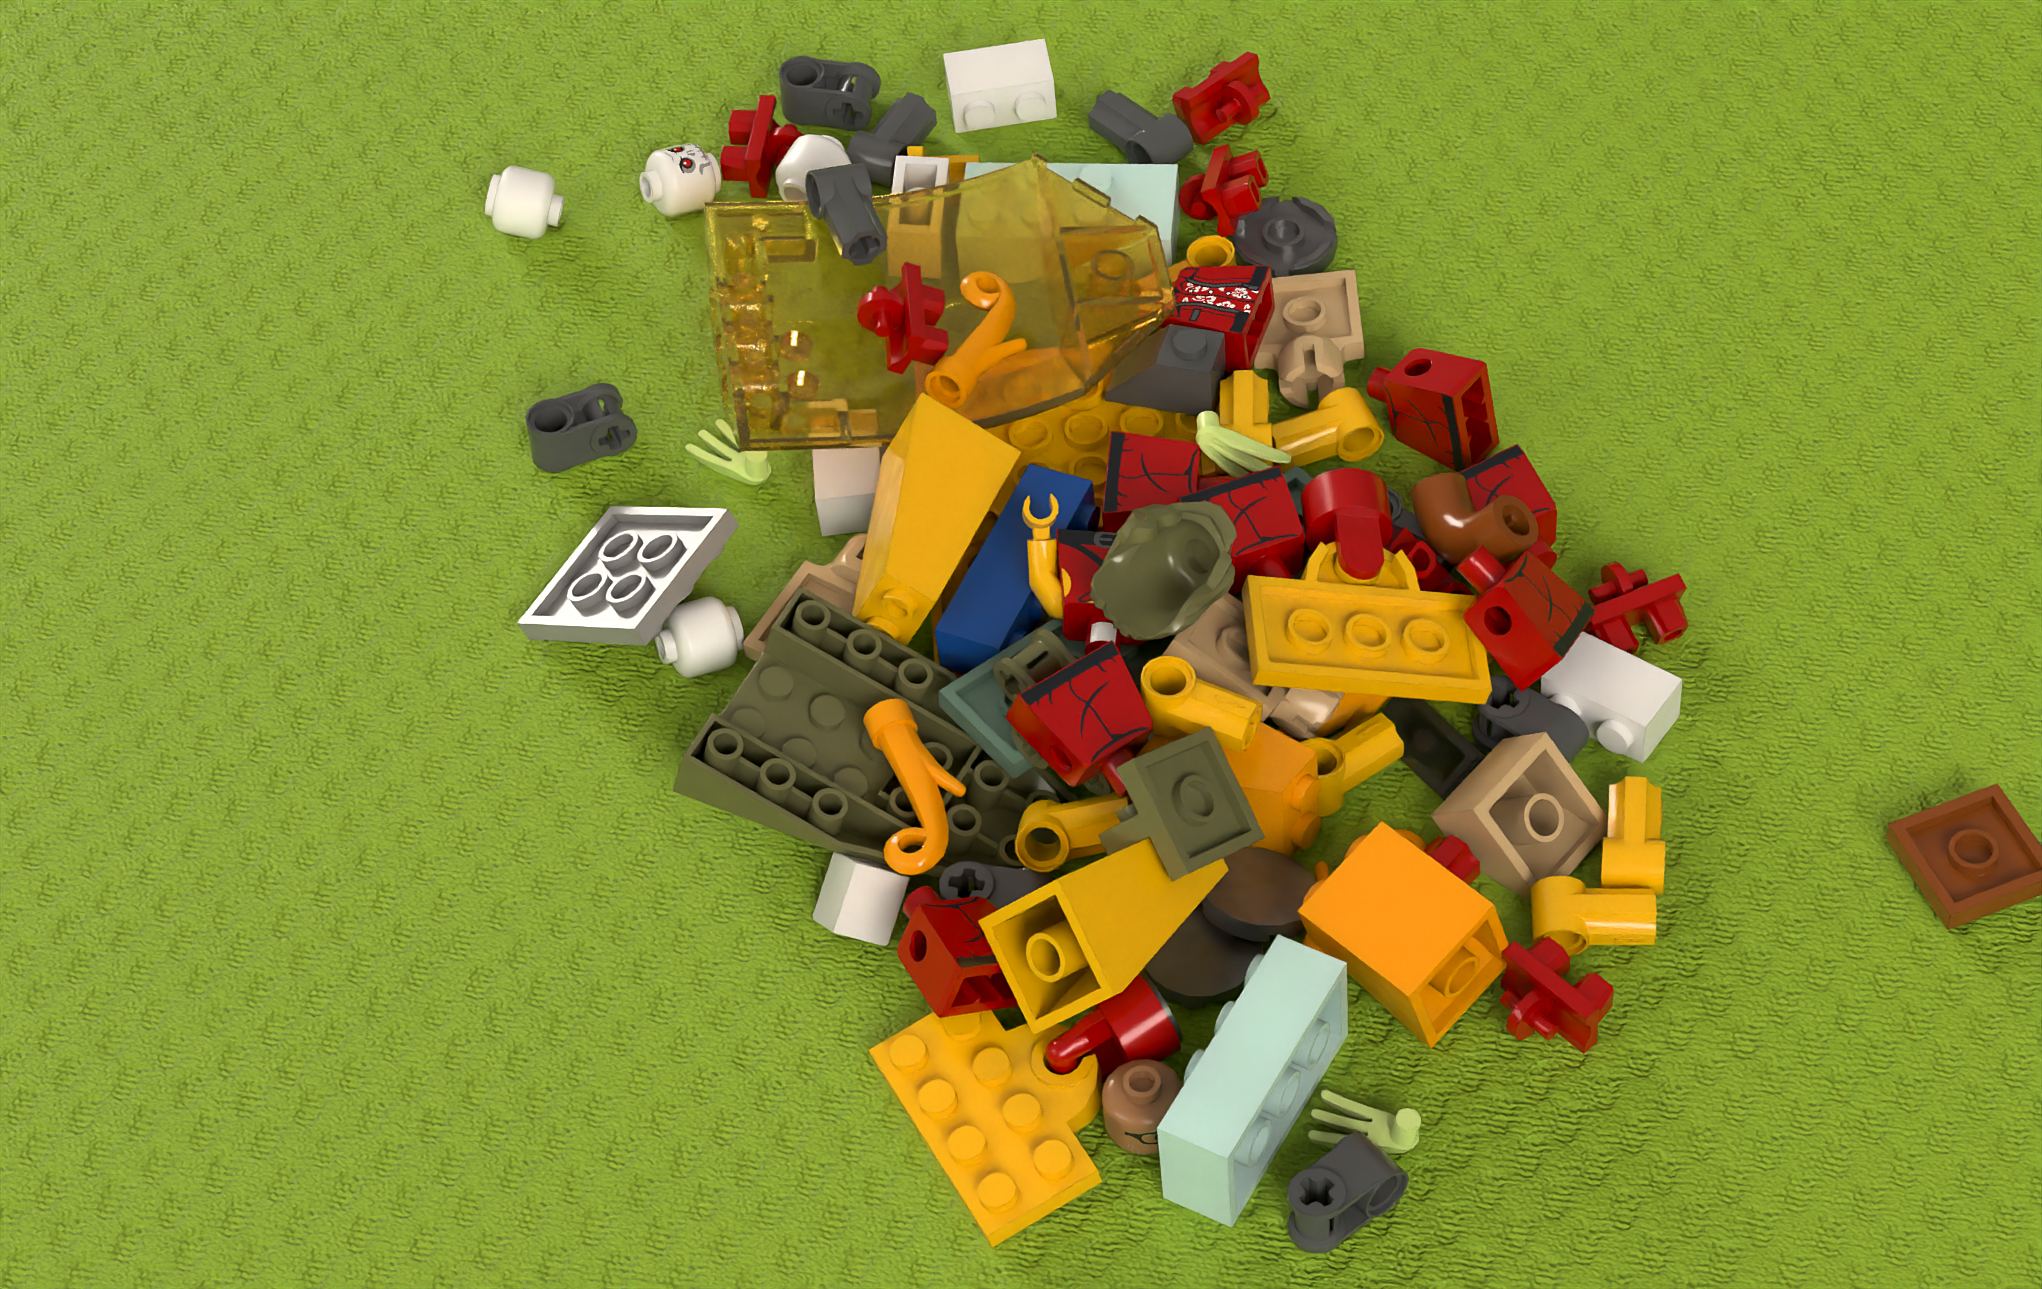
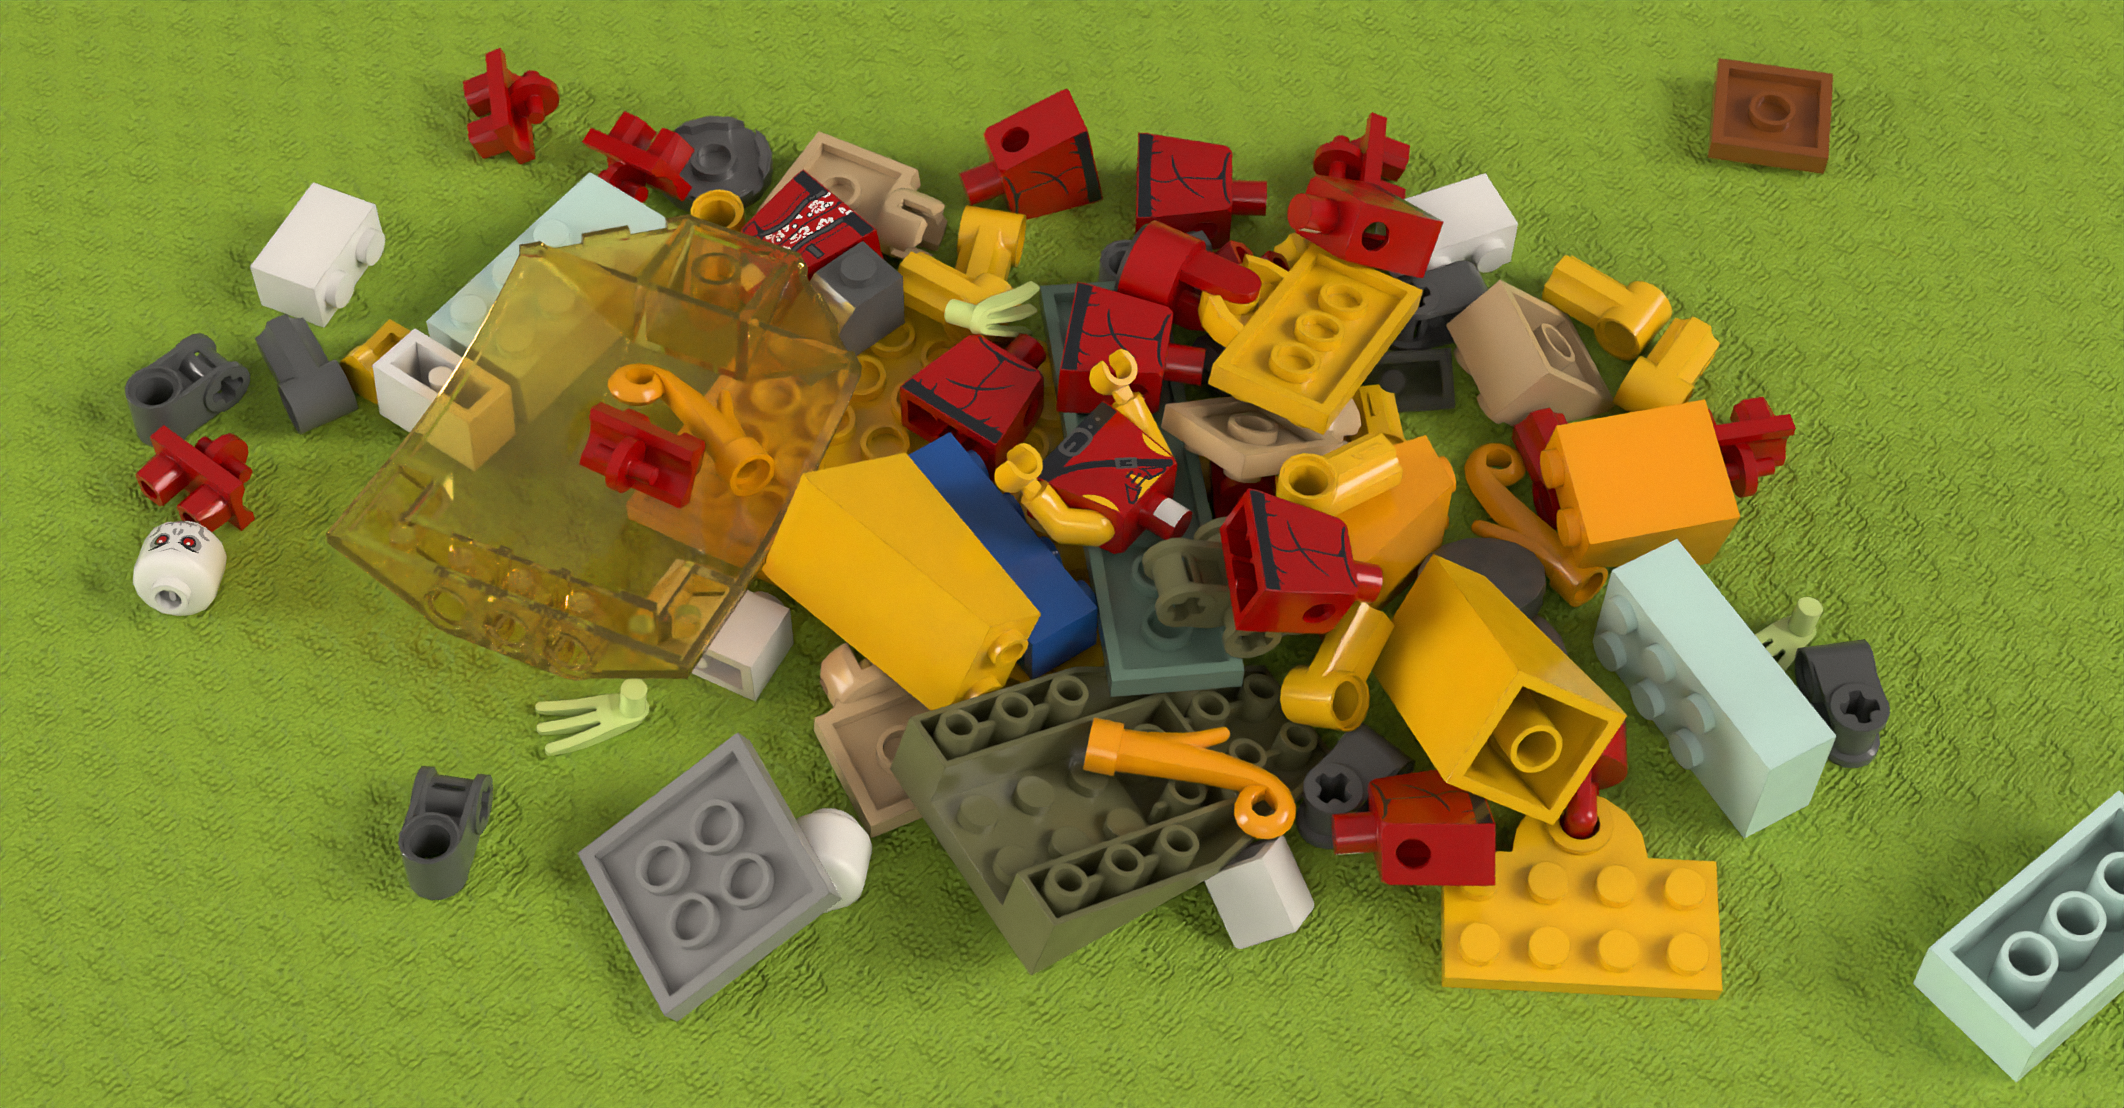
camera: 65 degrees left, 5 degrees up
(523, 202) = (68, 720): white head -> none
(804, 155) = (289, 454): white head -> none
(844, 201) = (435, 418): dark grey piece -> none
(1137, 1101) = (1669, 789): medium nougat head -> none
(1139, 132) = (507, 186): dark grey piece -> none
(1165, 568) = (1178, 411): olive hair -> none
(1185, 804) = (1439, 561): olive bracket -> none
(1456, 528) = (1243, 211): dark orange cylinder -> none

